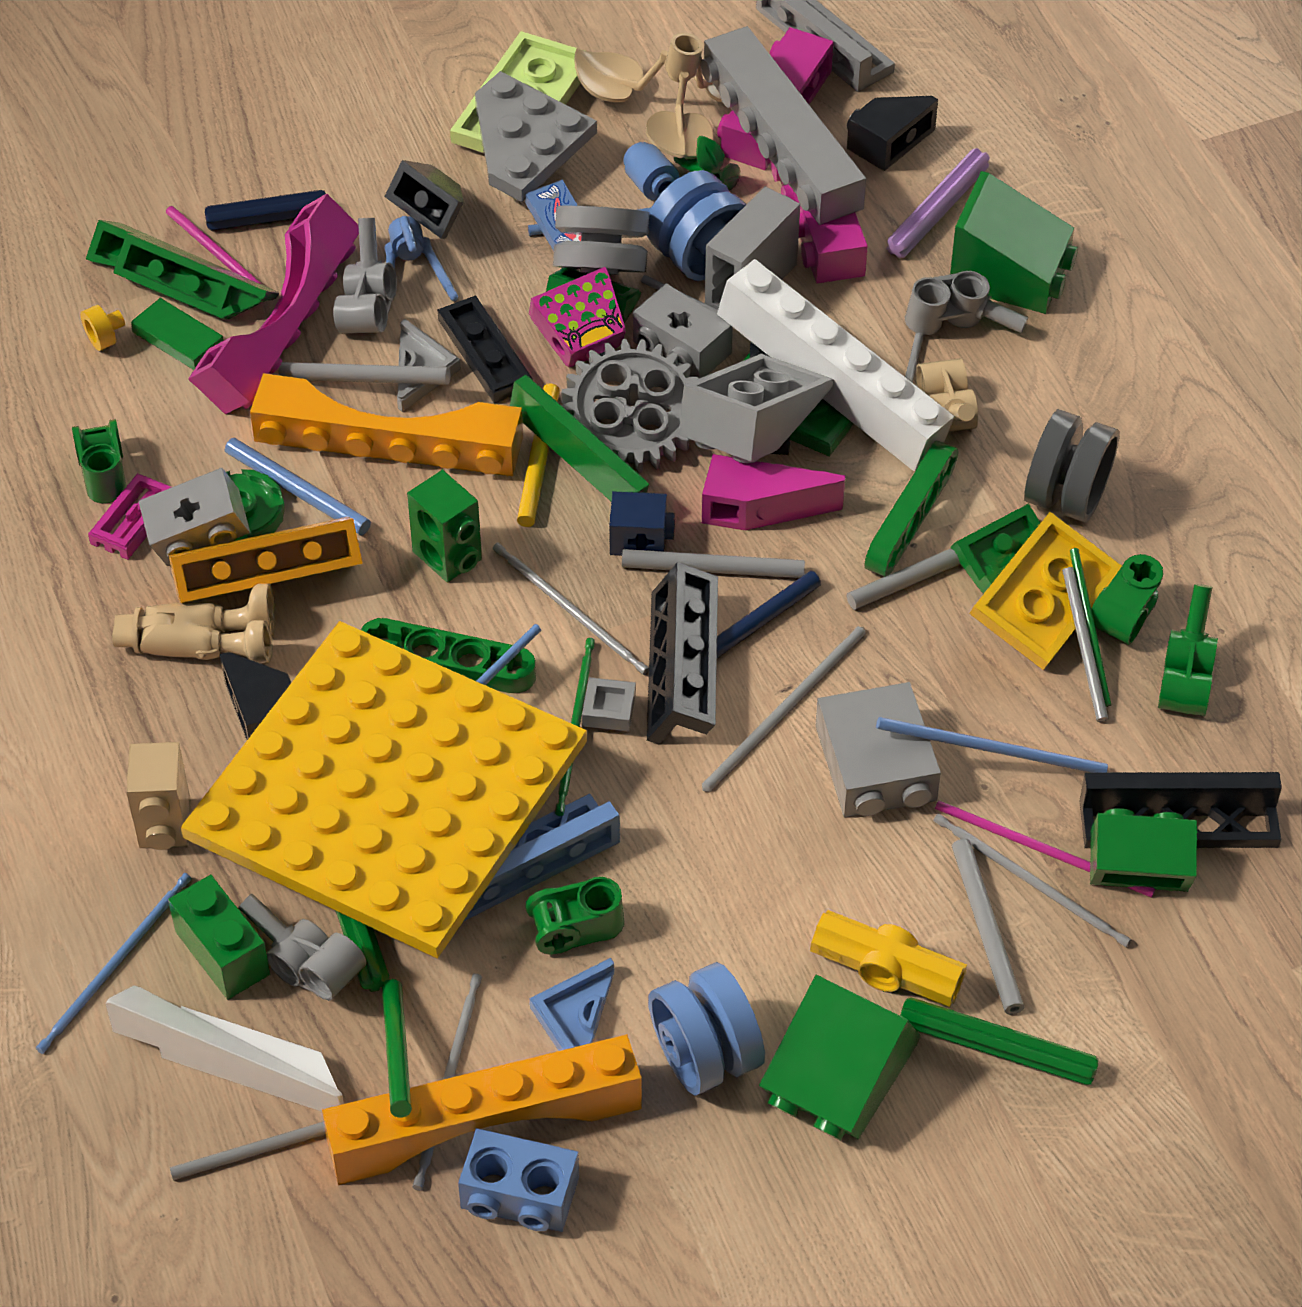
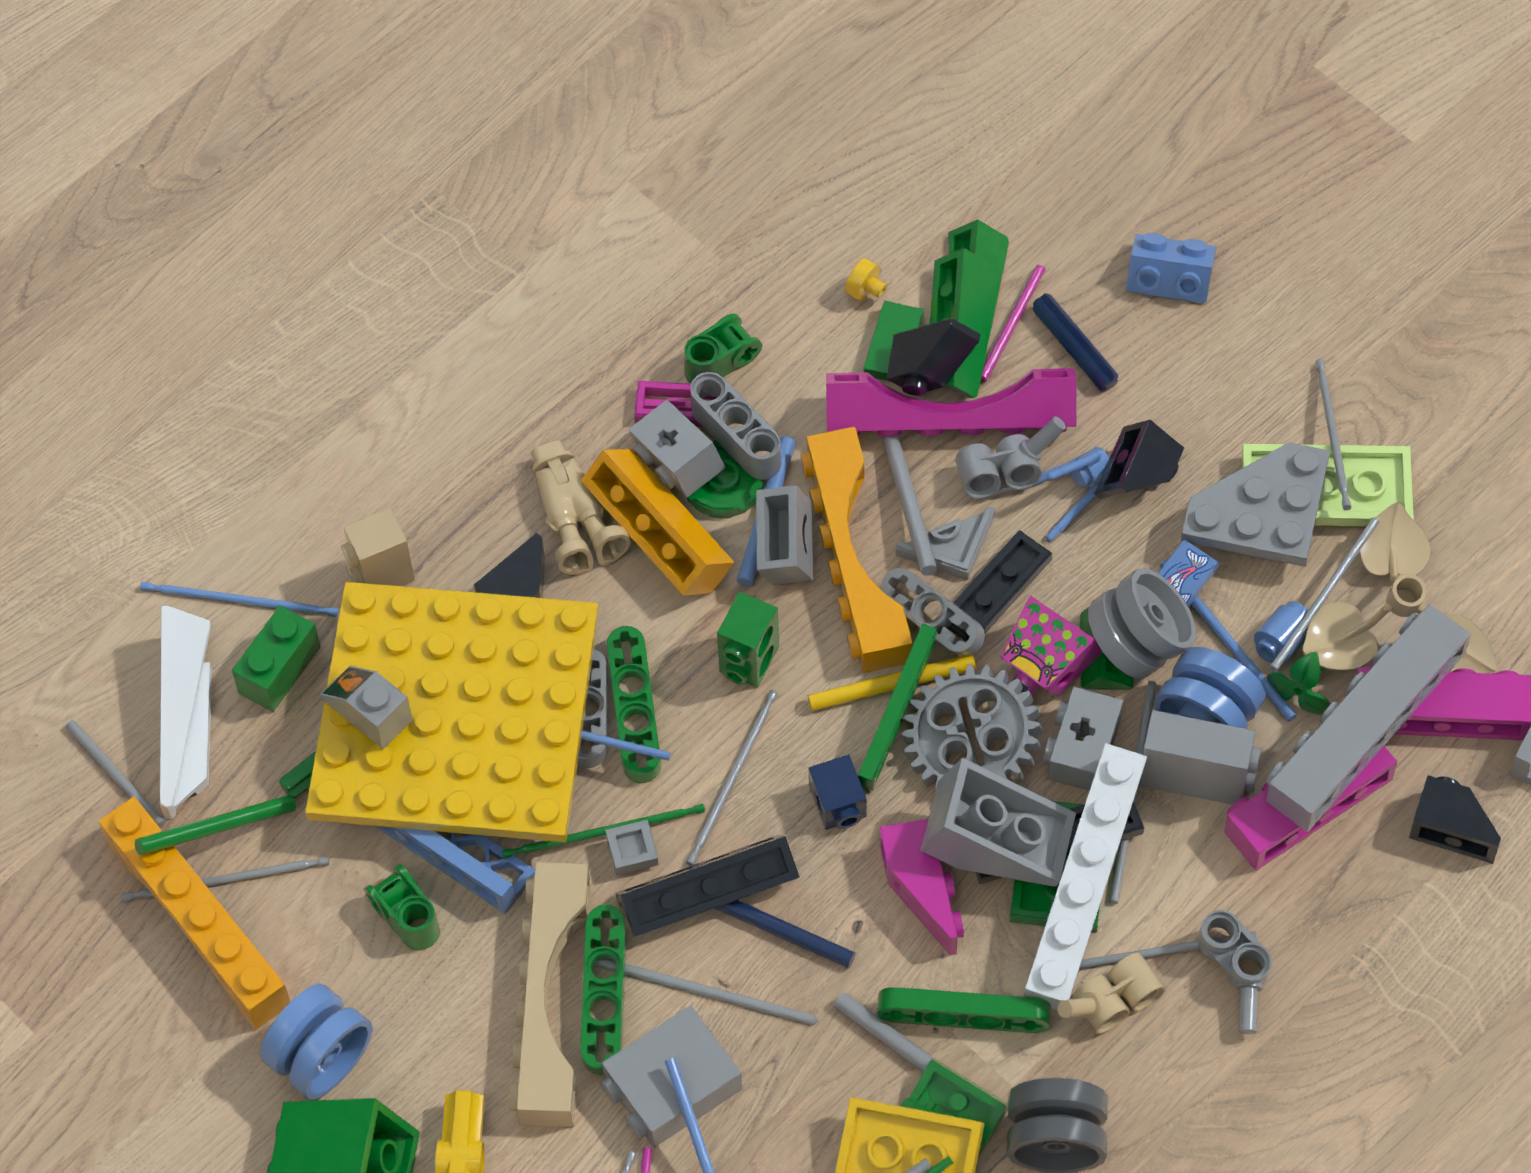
camera: 70 degrees right, 10 degrees up
(176, 460) = (731, 409): none -> light grey beam
(224, 293) = (929, 355): none -> black slope
(236, 120) = (1170, 267): none -> medium blue bracket
(305, 954) = (285, 726): light grey beam -> none
(345, 464) = (784, 535): none -> light grey brick
(351, 833) = (369, 704): none -> light grey slope
(495, 374) = (950, 612): none -> light grey beam
(517, 73) = (1333, 434): none -> light grey piece
(523, 1168) = (150, 963): medium blue brick -> none
(574, 1006) = (320, 944): medium blue tile -> none
(634, 122) = (1324, 594): none -> light grey piece
(714, 563) = (831, 872): light grey bar -> none
(756, 771) = (600, 989): none -> green beam
(825, 853) = (558, 912): none -> tan arch
(937, 203) = (1380, 900): lavender axle -> none
(1013, 245) = (1330, 981): green slope -> none

